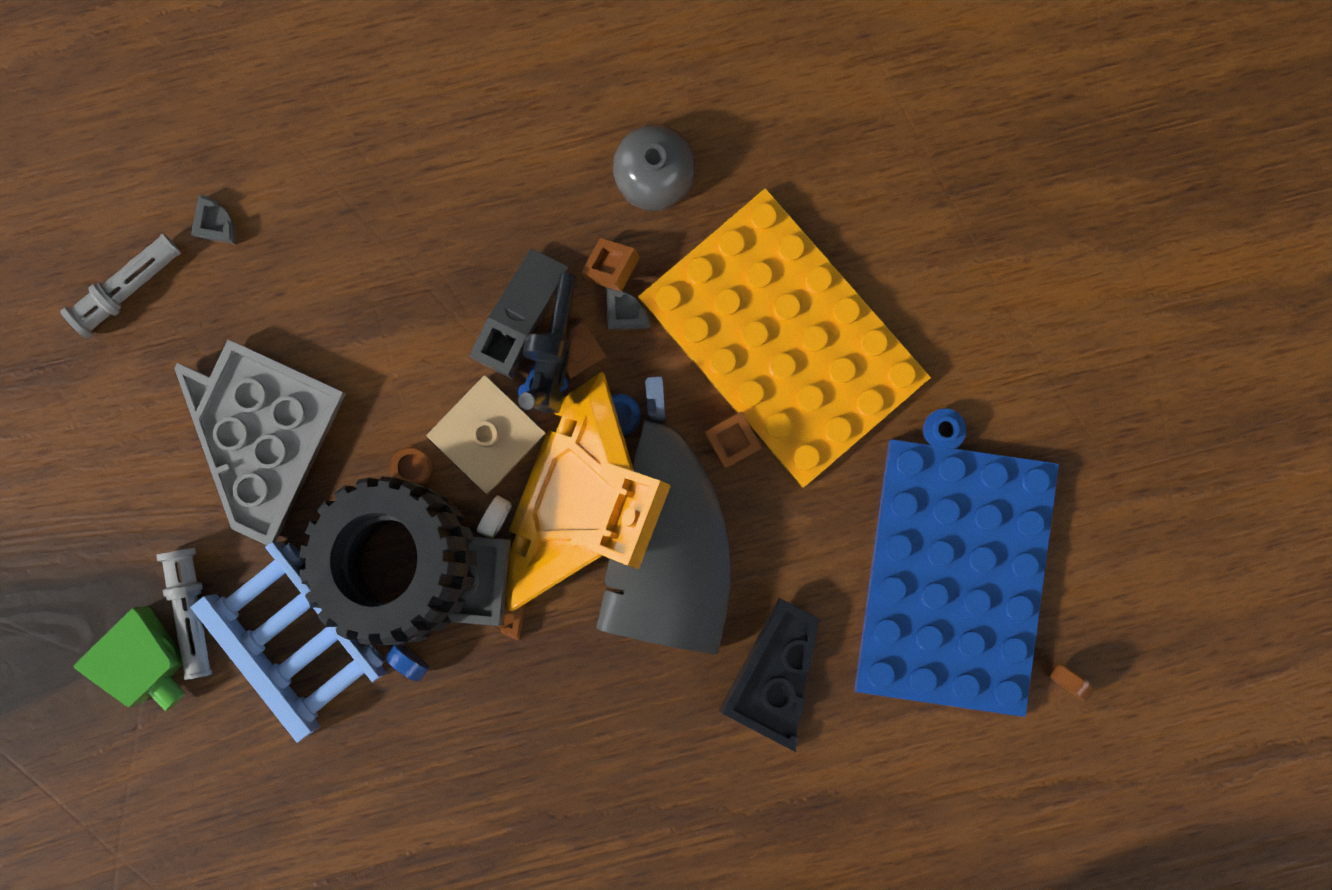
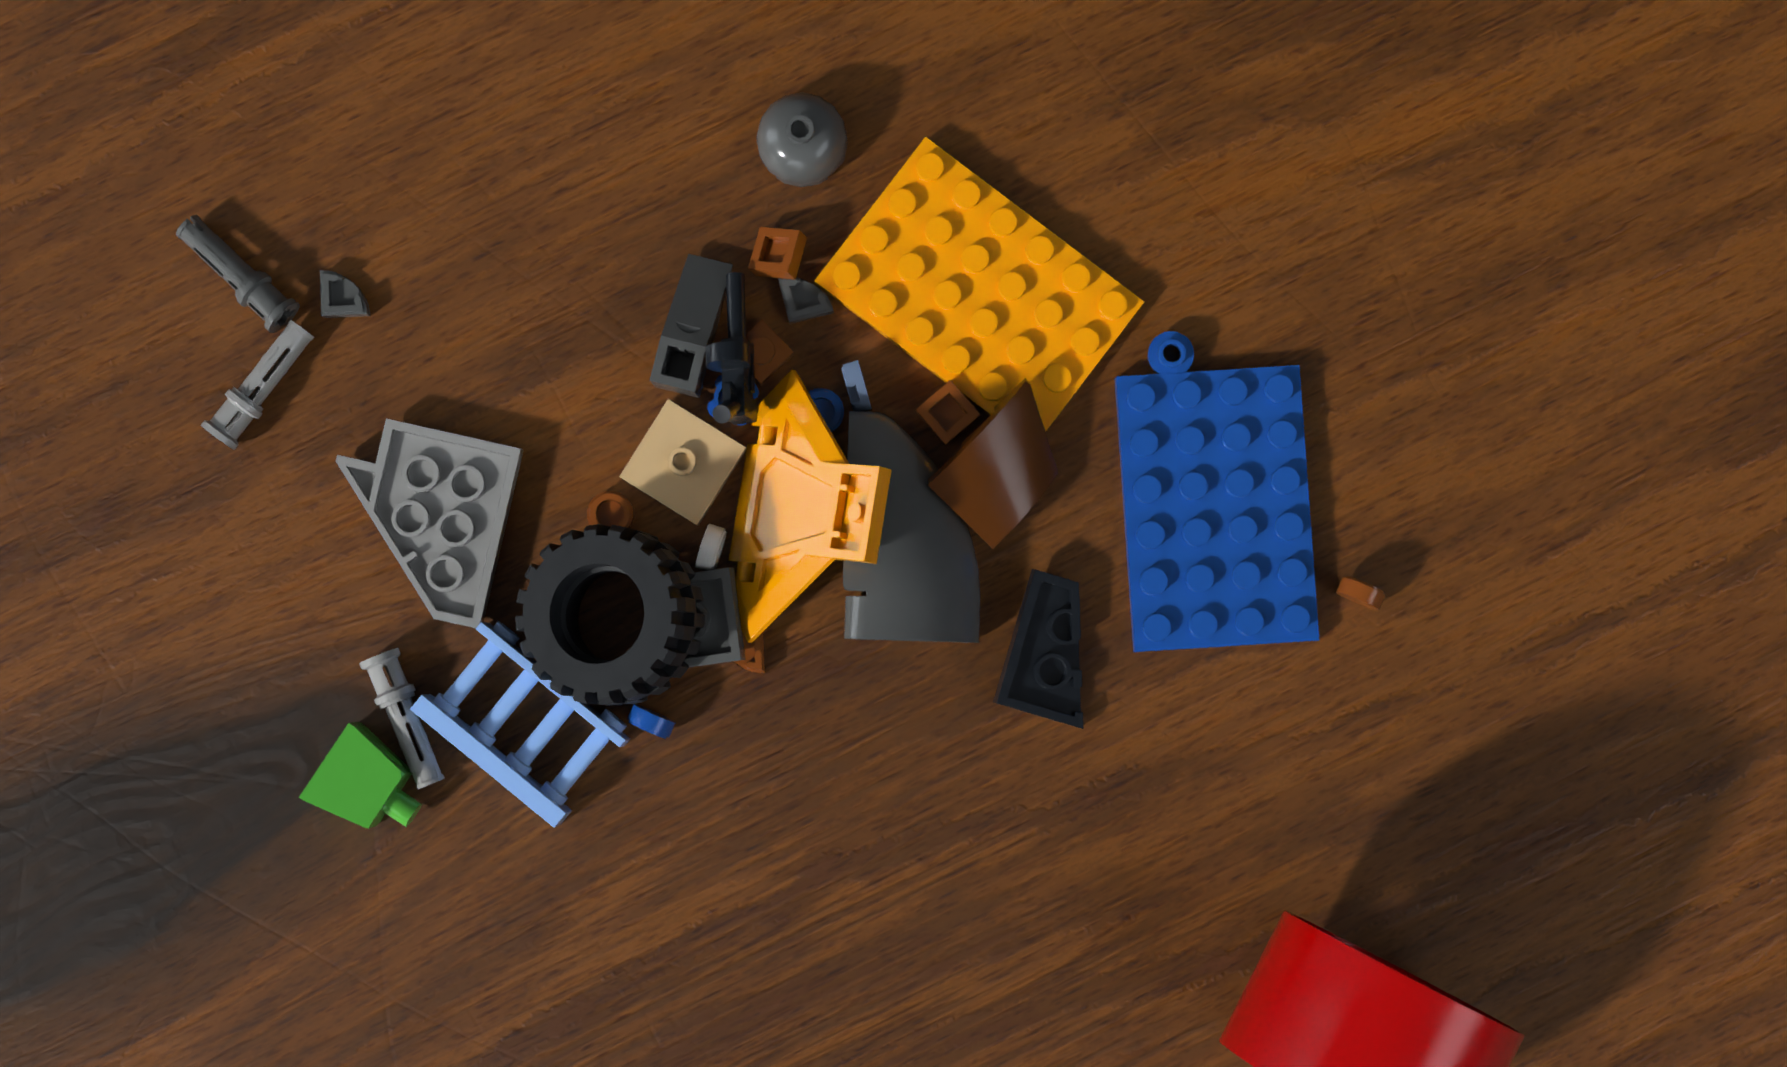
camera: 10 degrees left, 0 degrees up
(133, 196) = (251, 286): none -> dark grey pin
(769, 501) = (999, 468): none -> reddish brown slope

